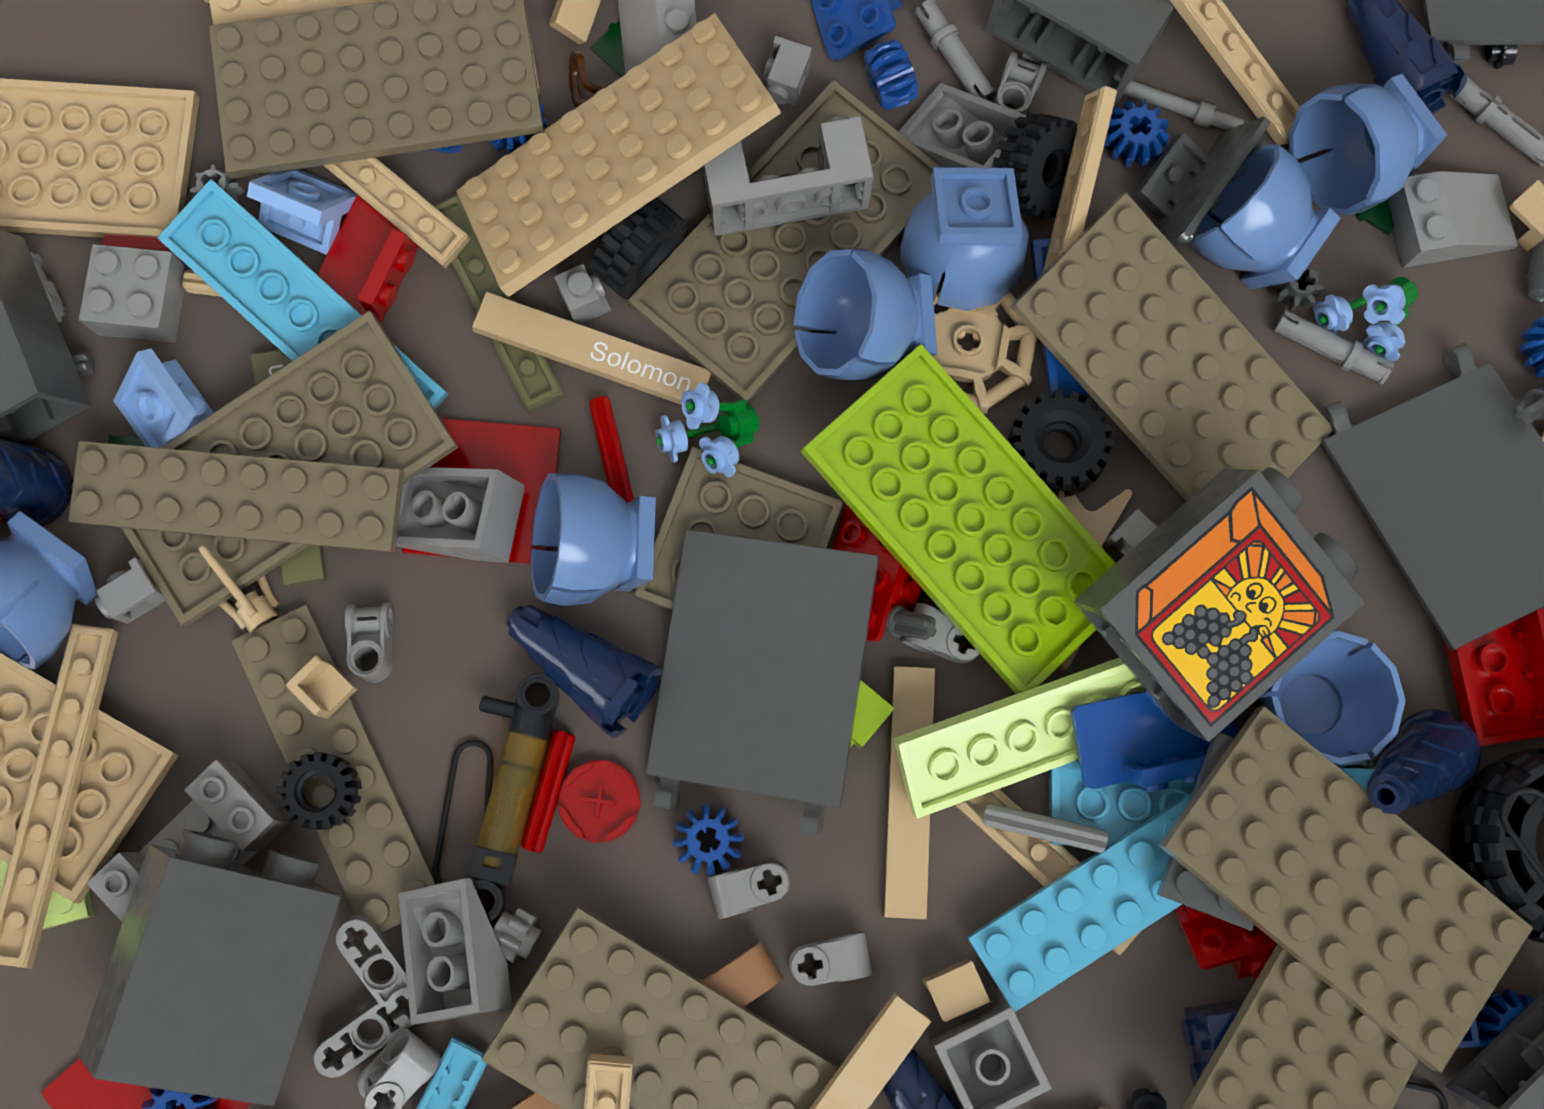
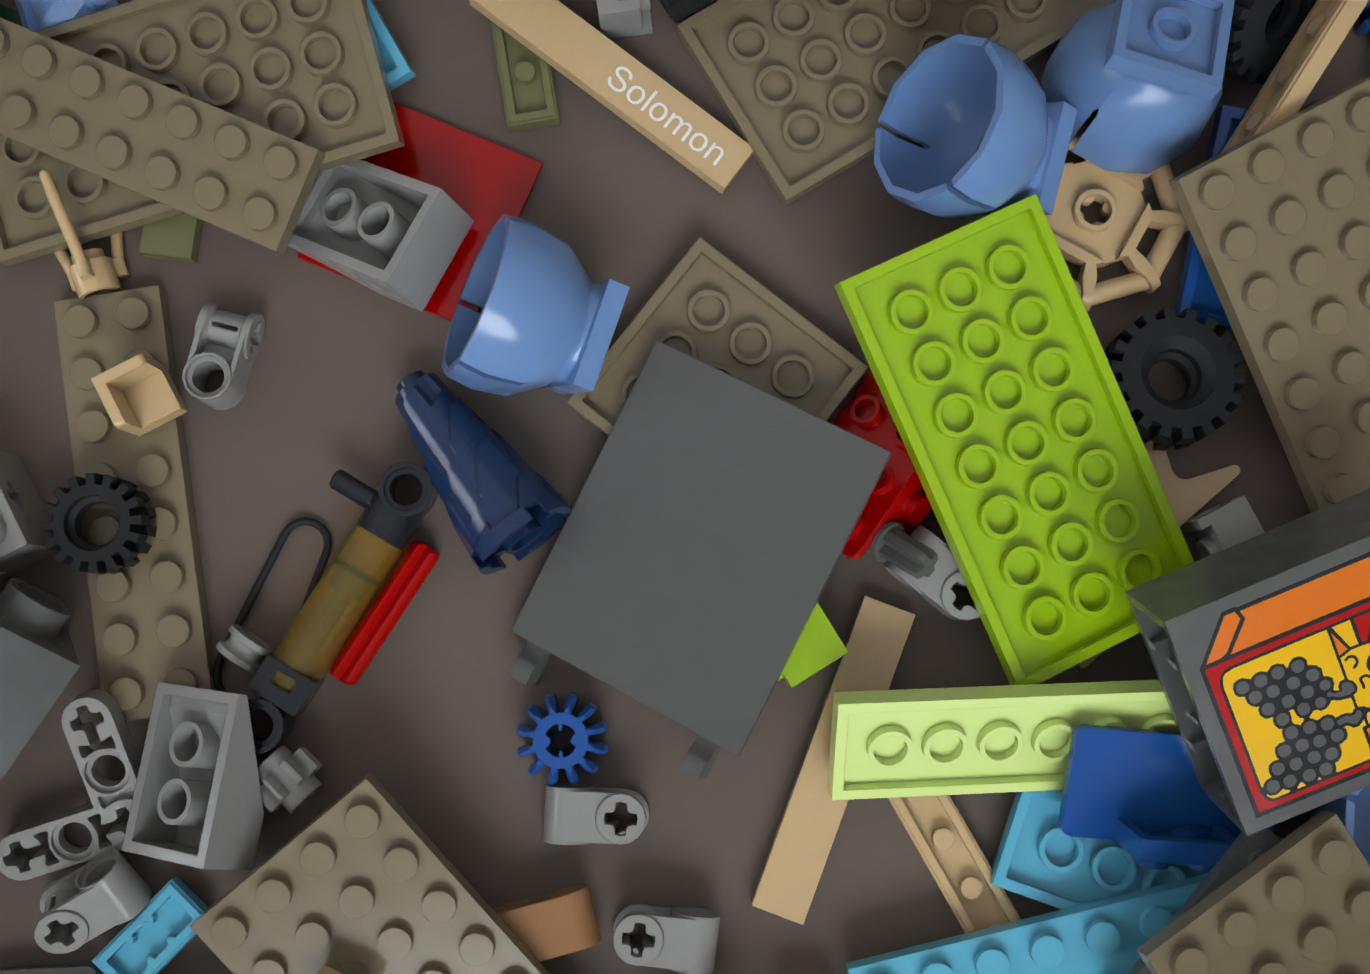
camera: 20 degrees right, 5 degrees up
(453, 849) = (244, 648): none -> light grey bush
(599, 801) = (444, 645): red tile -> none
(610, 447) = (596, 207): red axle -> none
(702, 405) = (727, 187): light blue plant -> none
(1045, 827) = (991, 863): light grey axle -> none

